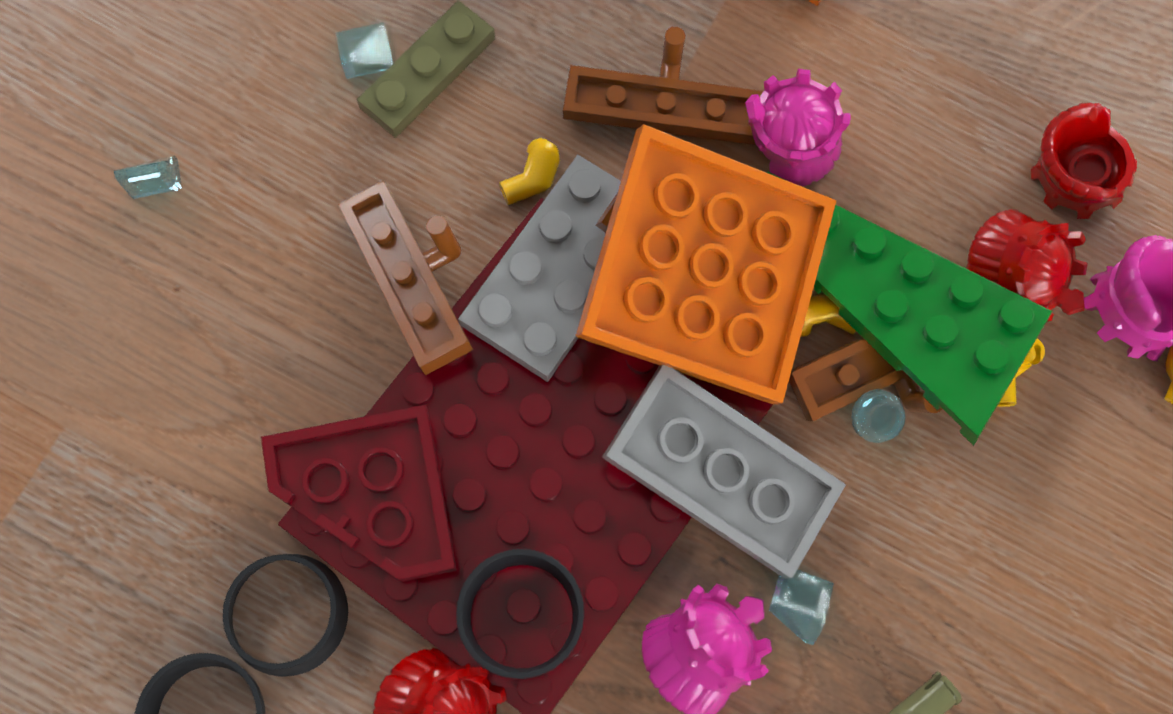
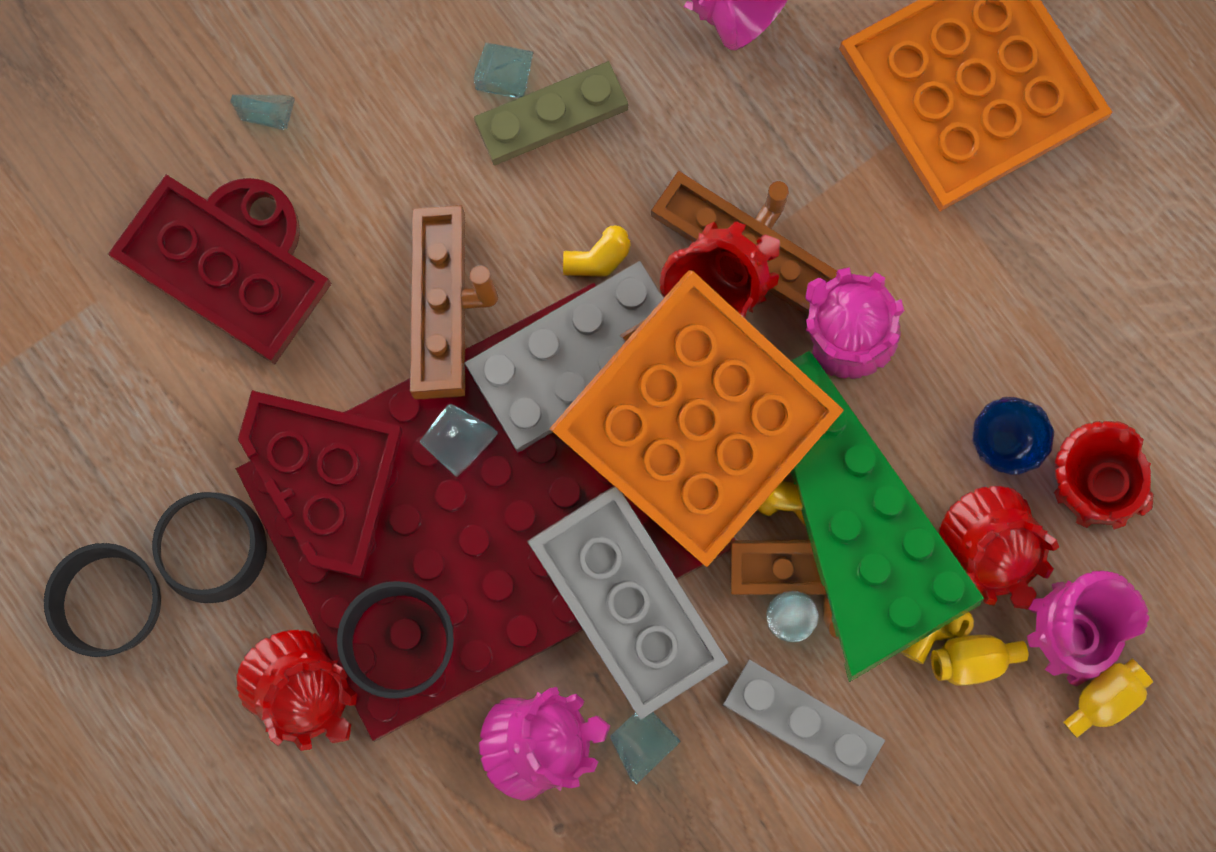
camera: 30 degrees right, 5 degrees up
(176, 331) = (224, 261): none -> dark red plate
(484, 394) = (457, 438): none -> clear light blue slope
(662, 108) = (727, 264): none -> red hair
(938, 510) = (804, 722): none -> light grey plate
(989, 162) = (1012, 435): none -> clear blue hair
(1060, 377) = (975, 659): none -> yellow plant

